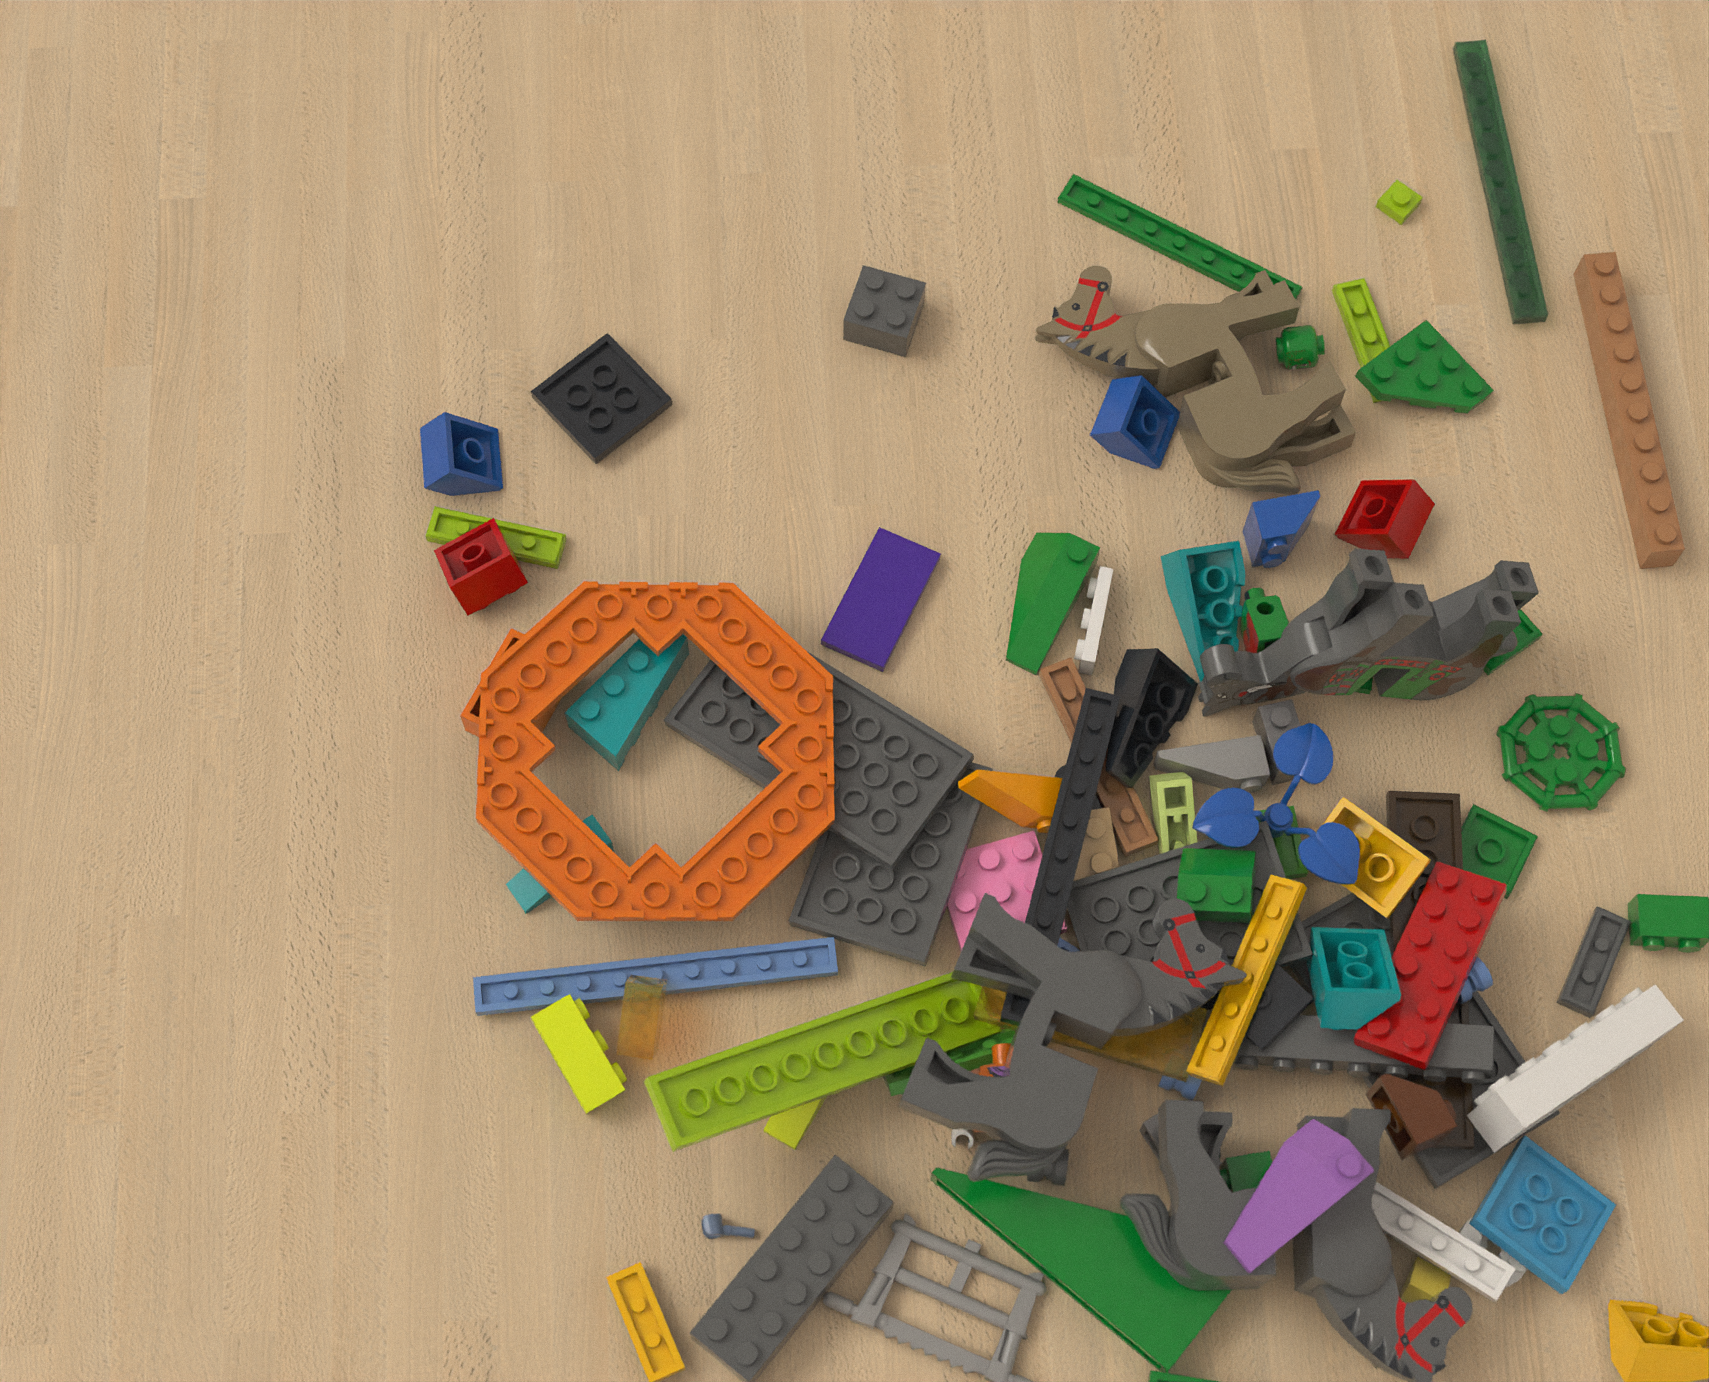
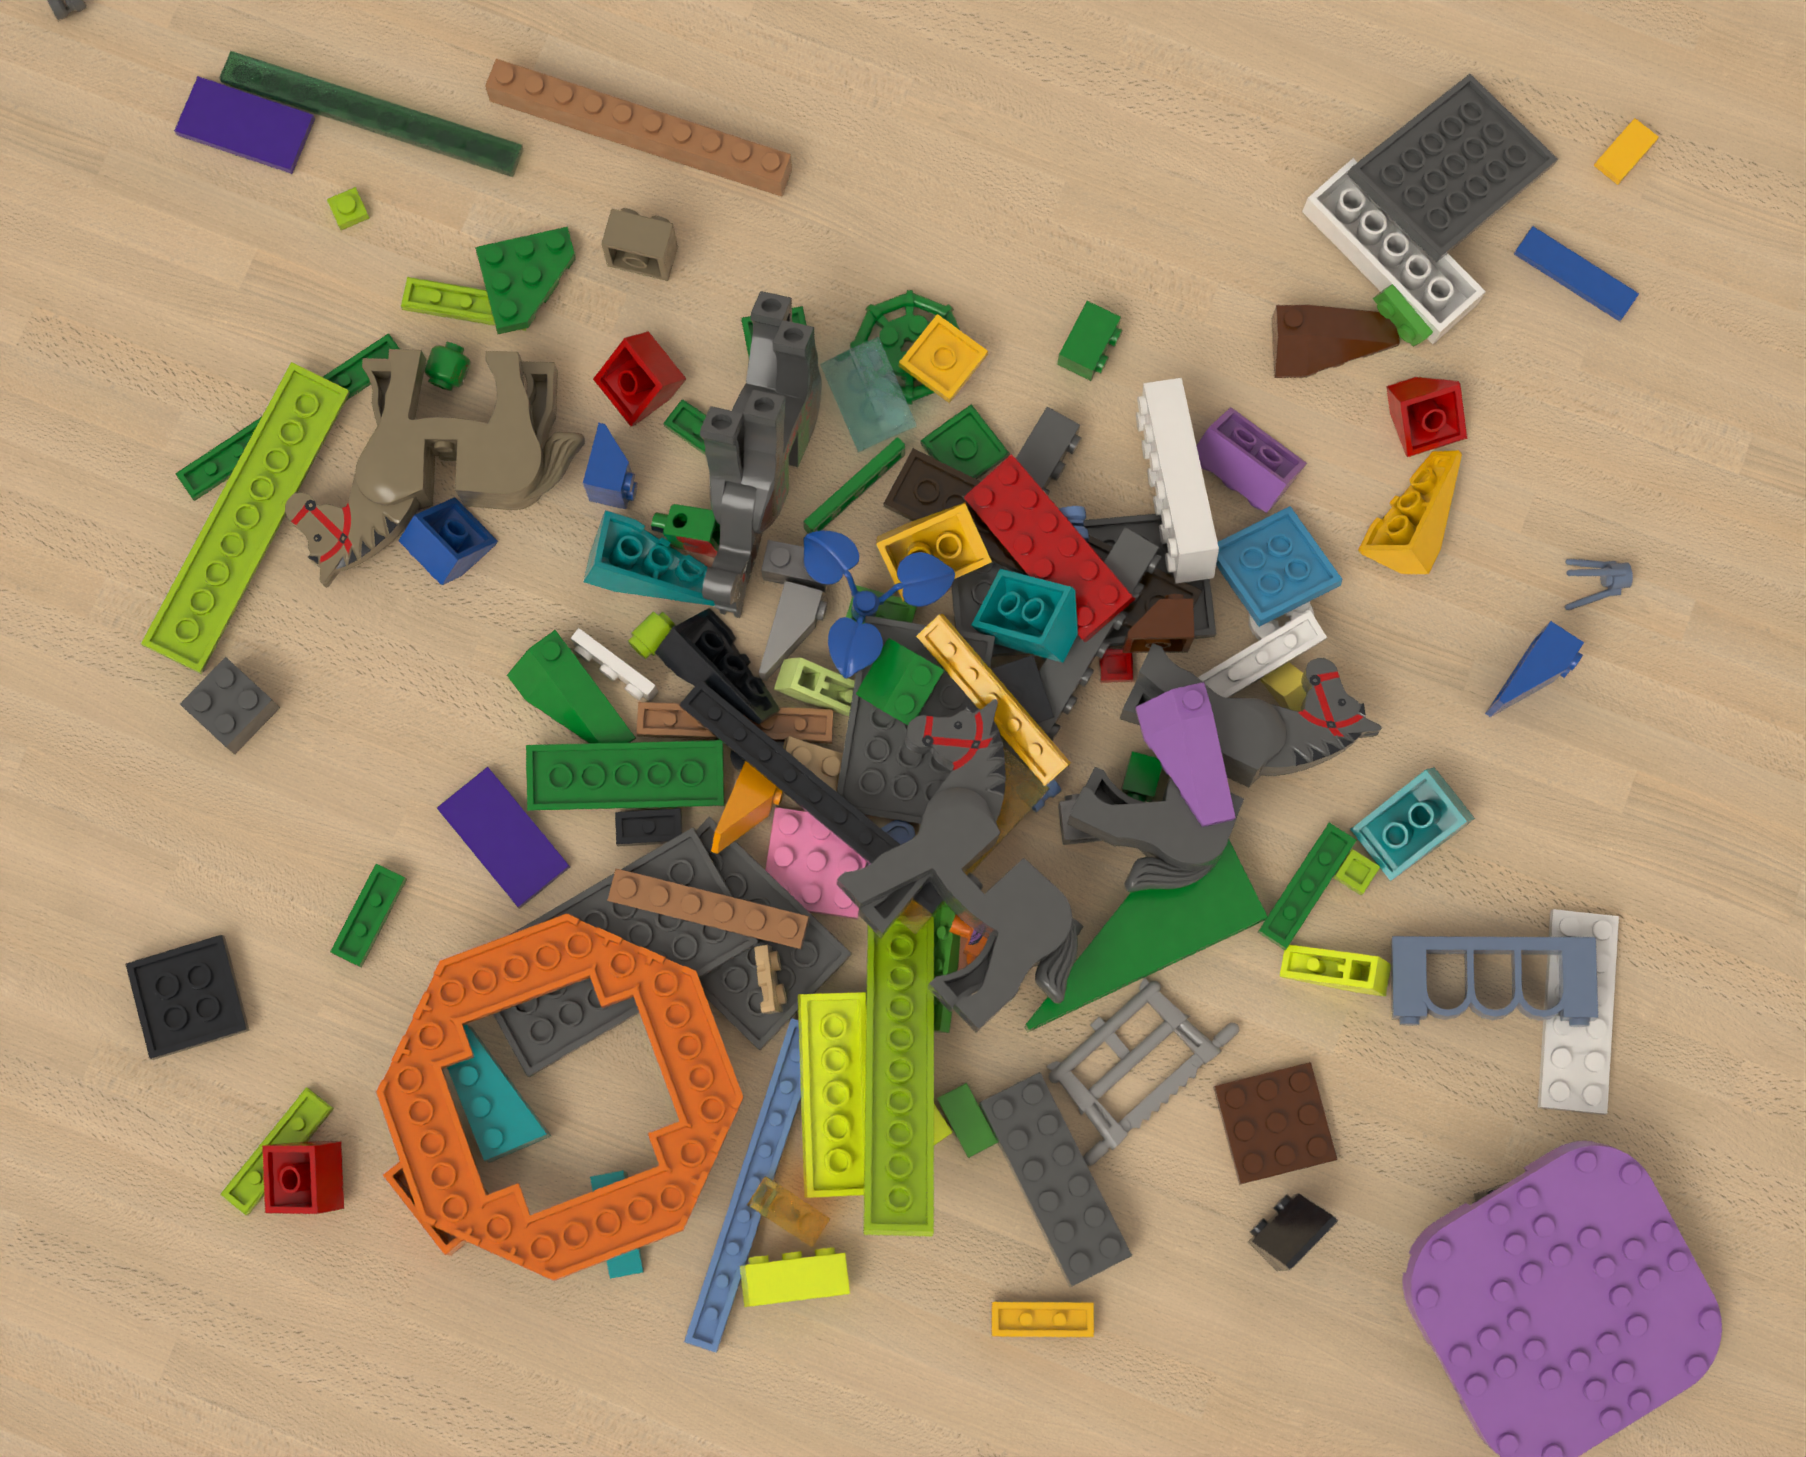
camera: 65 degrees left, 10 degrees up
(460, 456) = (183, 1150): blue slope -> none
(713, 1228) = (987, 1228): sand blue hand -> none
(749, 514) = (368, 915): none -> green plate
(802, 991) = (833, 1092): none -> neon yellow plate
(812, 1155) = (967, 1120): none -> bright green tile
(862, 889) = (773, 993): none -> tan wing
(901, 805) = (708, 908): none -> medium nougat plate
(955, 719) = (647, 826): none -> black plate
(995, 678) = (625, 775): none -> green plate
(1064, 245) = (245, 518): none -> lime plate
(1142, 636) = (650, 634): none -> lime brick
(1348, 1096) = (1116, 666): none -> red tile
(1392, 762) = (855, 487): none -> green tile
(1425, 85) = (244, 125): none -> dark purple tile
(1491, 731) = (868, 394): none -> clear light blue slope
(1514, 456) = (639, 243): none -> dark tan brick
(1533, 929) = (1048, 446): none -> dark grey brick
(1567, 784) = (943, 358): none -> yellow plate
(1593, 962) = (1092, 416): dark grey tile -> none
(1640, 1138) = (1248, 459): none -> medium lavender slope

